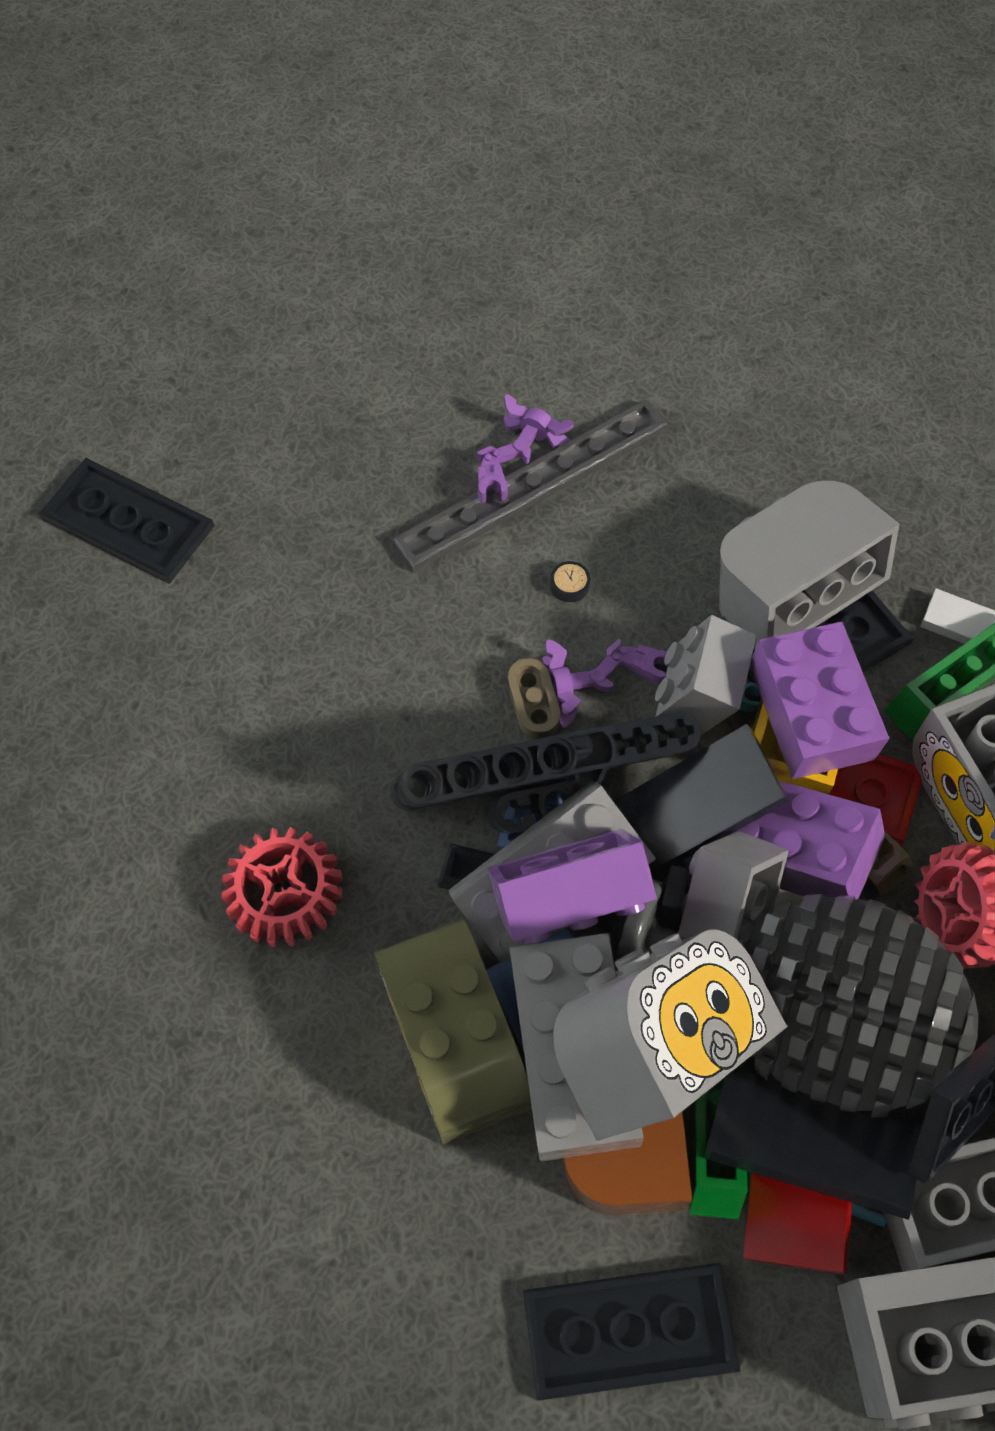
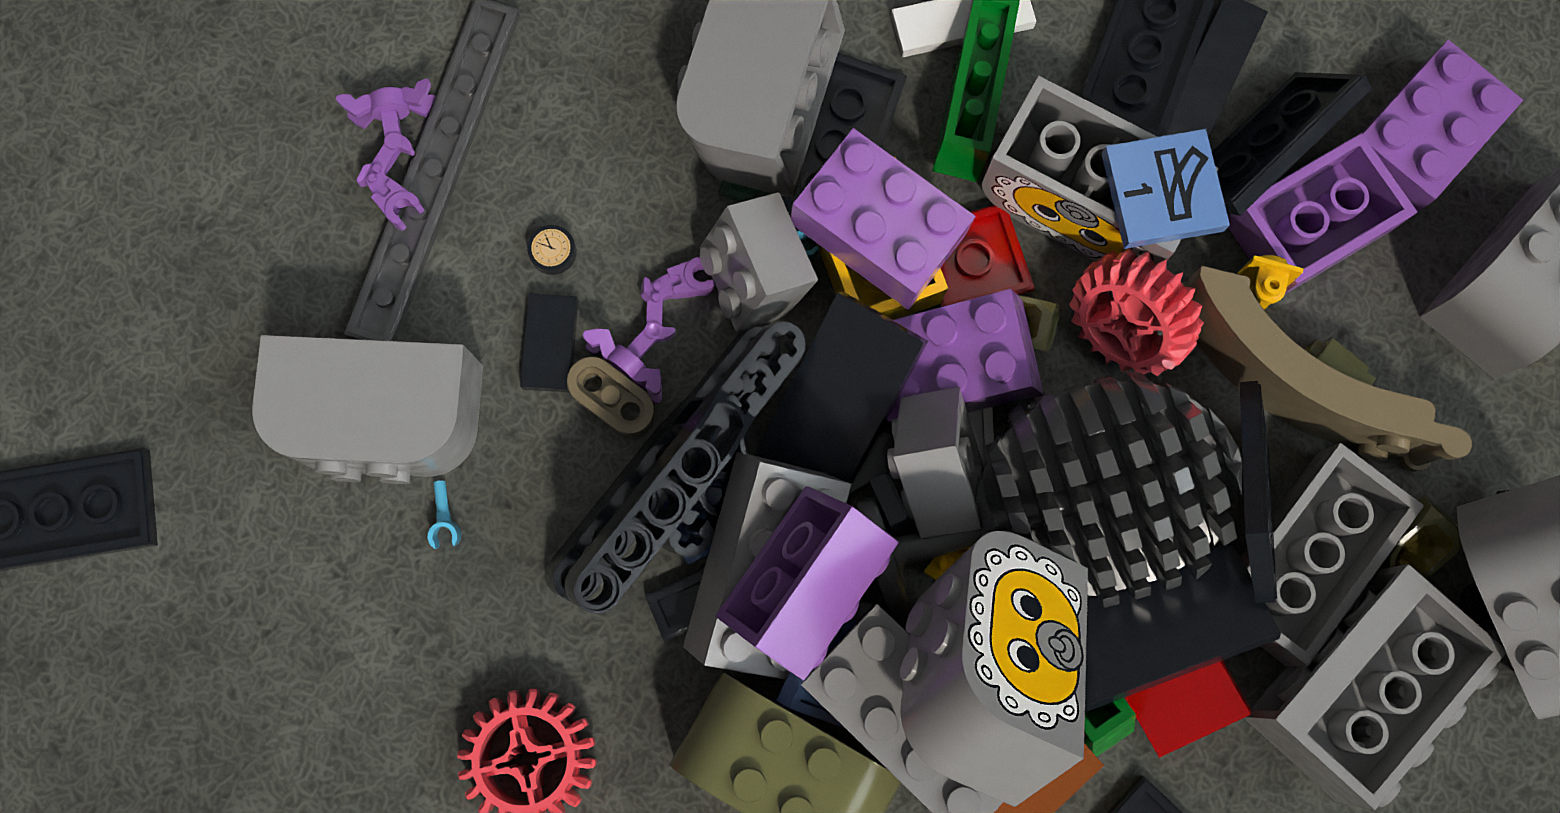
camera: 40 degrees left, 15 degrees up
(357, 696) = (443, 517): none -> medium azure hand
(373, 586) = (367, 405): none -> light grey brick
(520, 636) = (549, 342): none -> black tile

